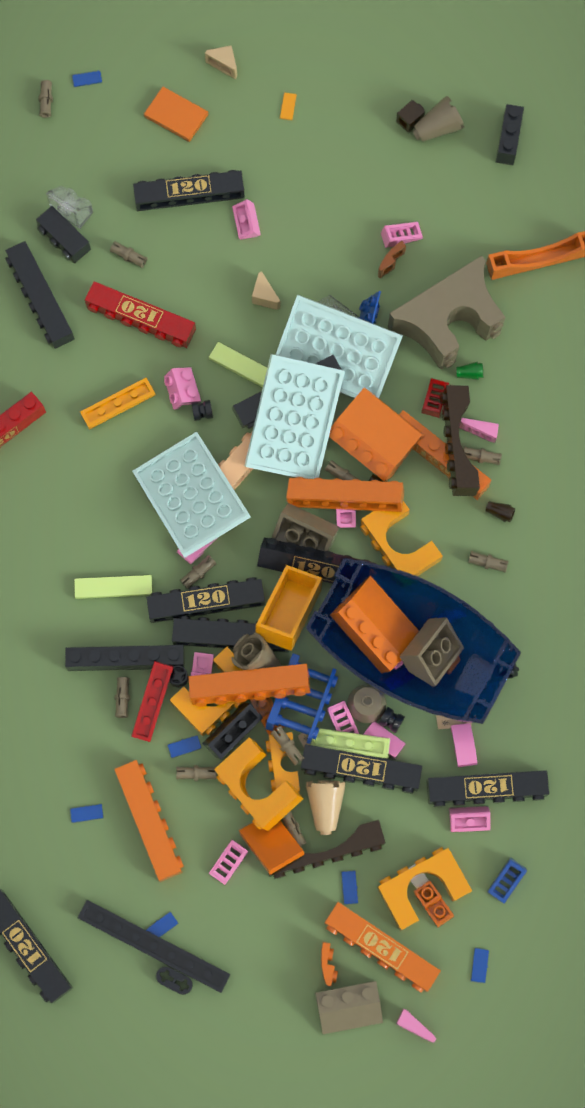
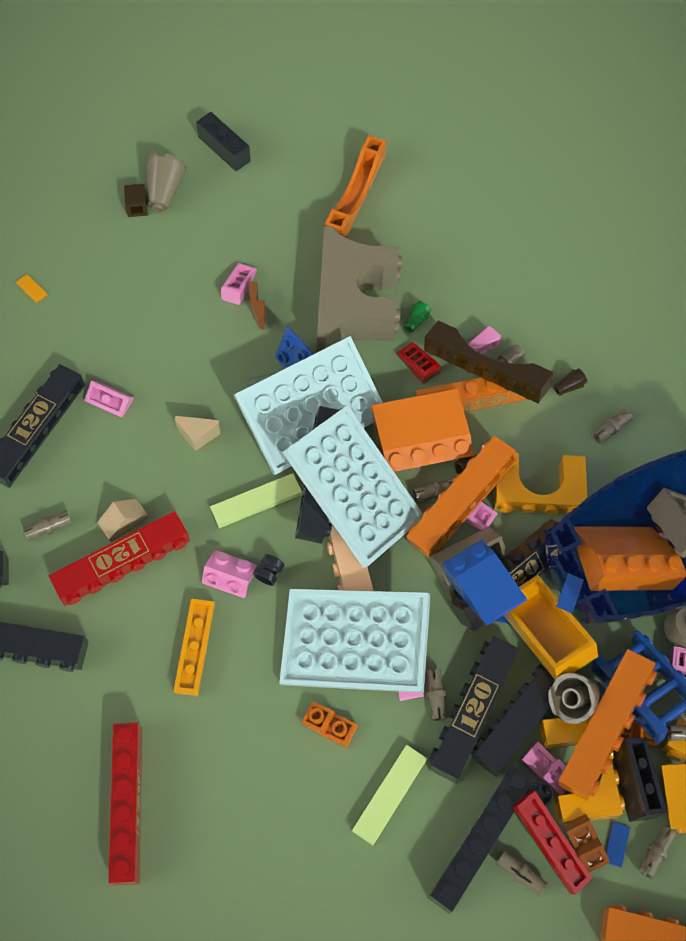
camera: 55 degrees left, 10 degrees down
(130, 520) = (329, 725): none -> orange slope
(168, 724) = (586, 843): none -> dark orange slope
(169, 294) = (121, 517): none -> tan slope
(286, 544) = (483, 582): none -> blue slope
(319, 603) = (570, 593): none -> blue window

